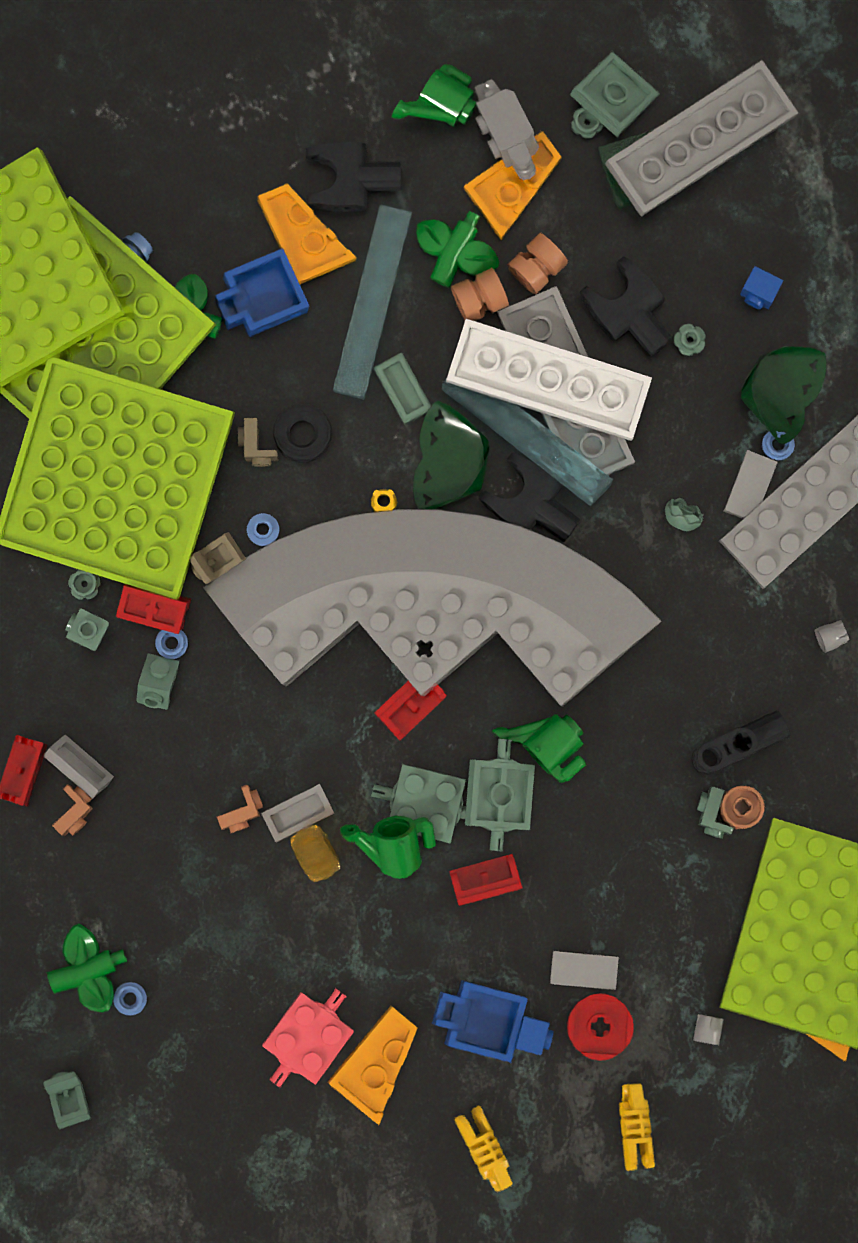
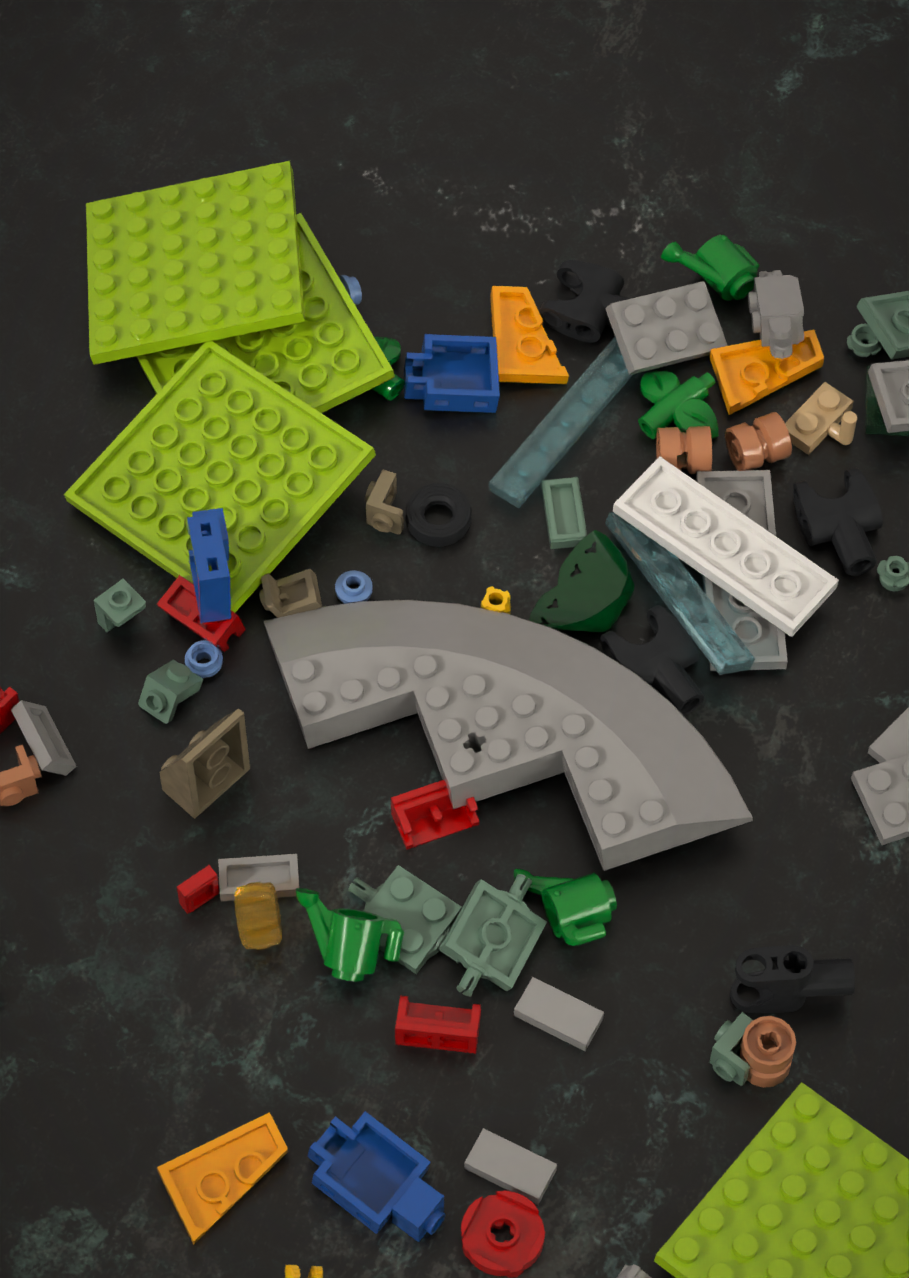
camera: 20 degrees right, 25 degrees down
(88, 592) = (139, 562): sand green plate -> none
(149, 580) = (210, 548): none -> blue piece
(216, 742) = (208, 764): none -> dark tan slope
(239, 818) = (196, 852): nougat bracket -> none
(258, 846) = (198, 889): none -> red tile
(308, 1038) = (157, 1115): coral plate -> none
(421, 182) = (666, 327): none -> light grey plate
(571, 833) = (558, 1014): none -> light grey tile
(576, 214) = (821, 417): none -> tan plate
(682, 515) = (819, 733): sand green plate -> none

